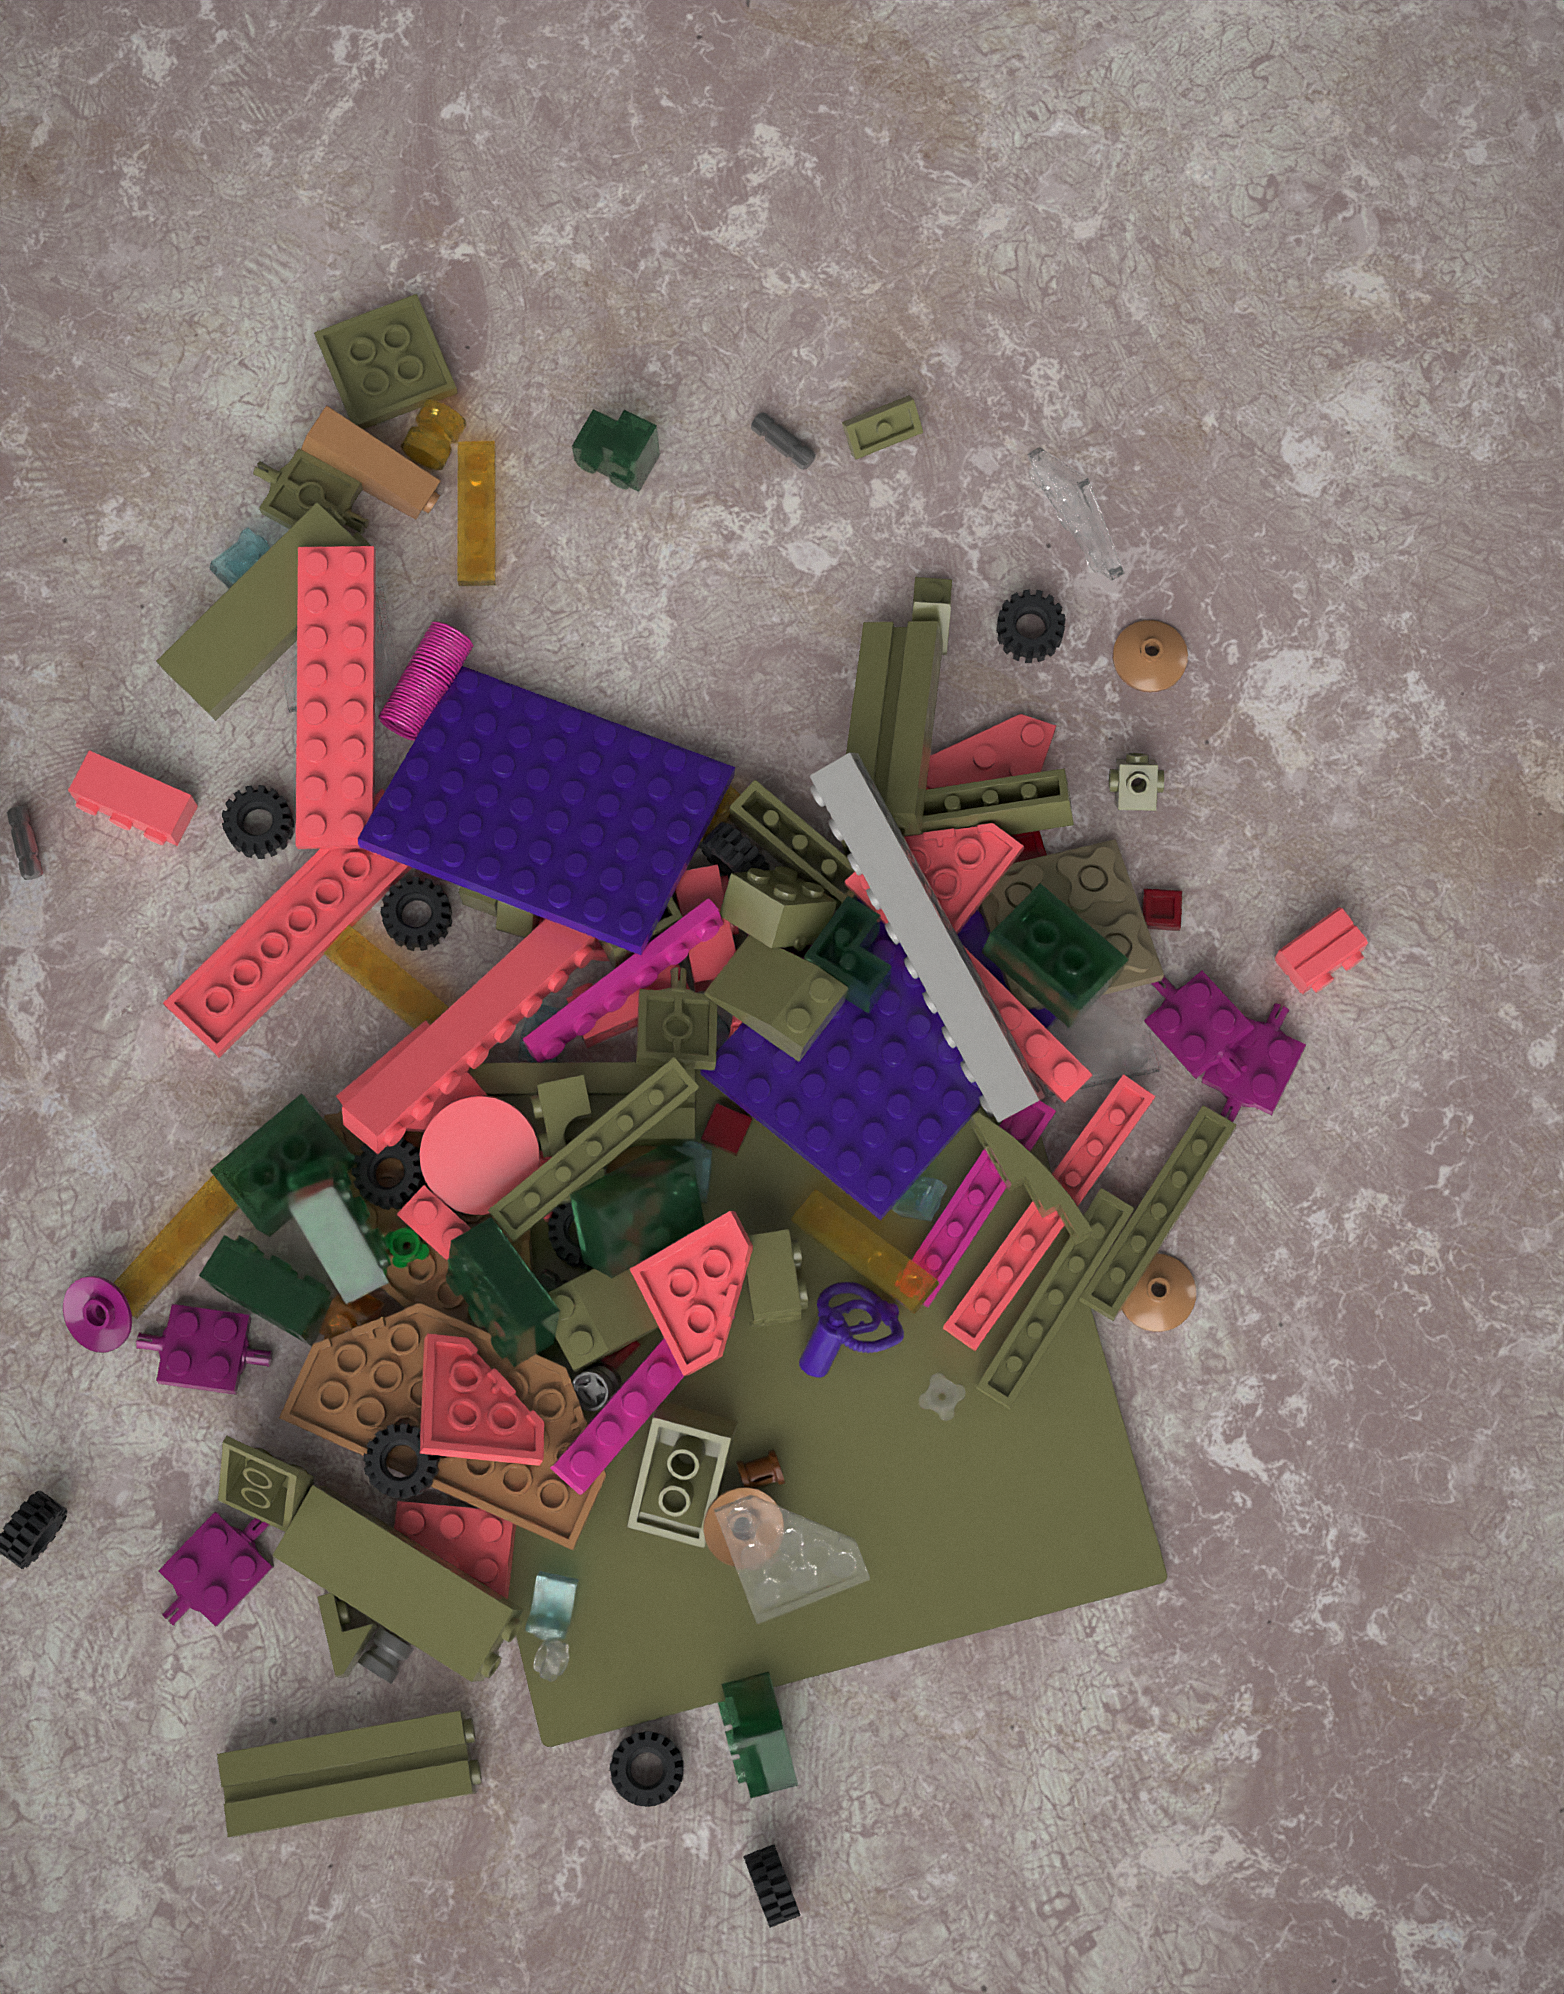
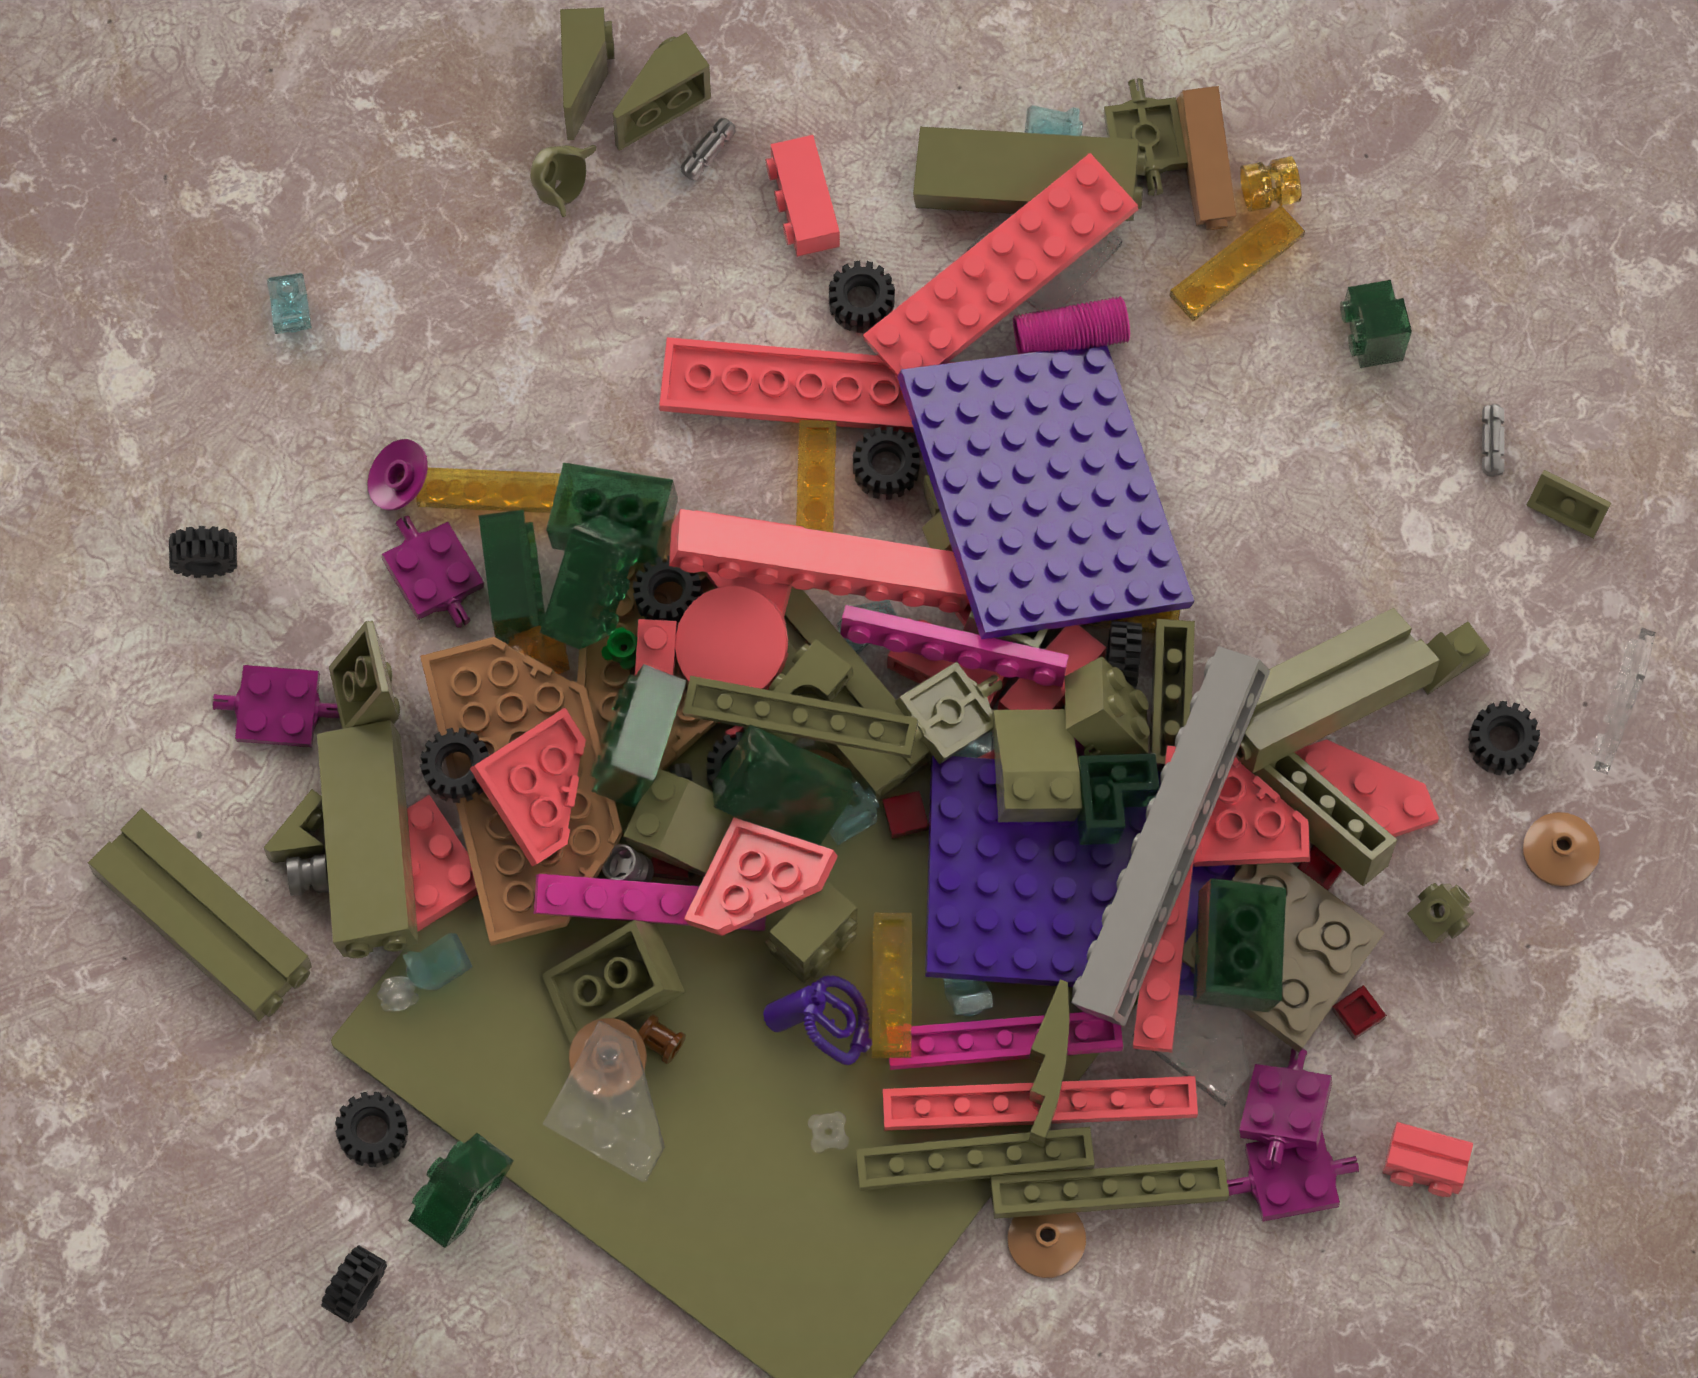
camera: 50 degrees right, 5 degrees down
(385, 362) = (1299, 106): olive plate -> none

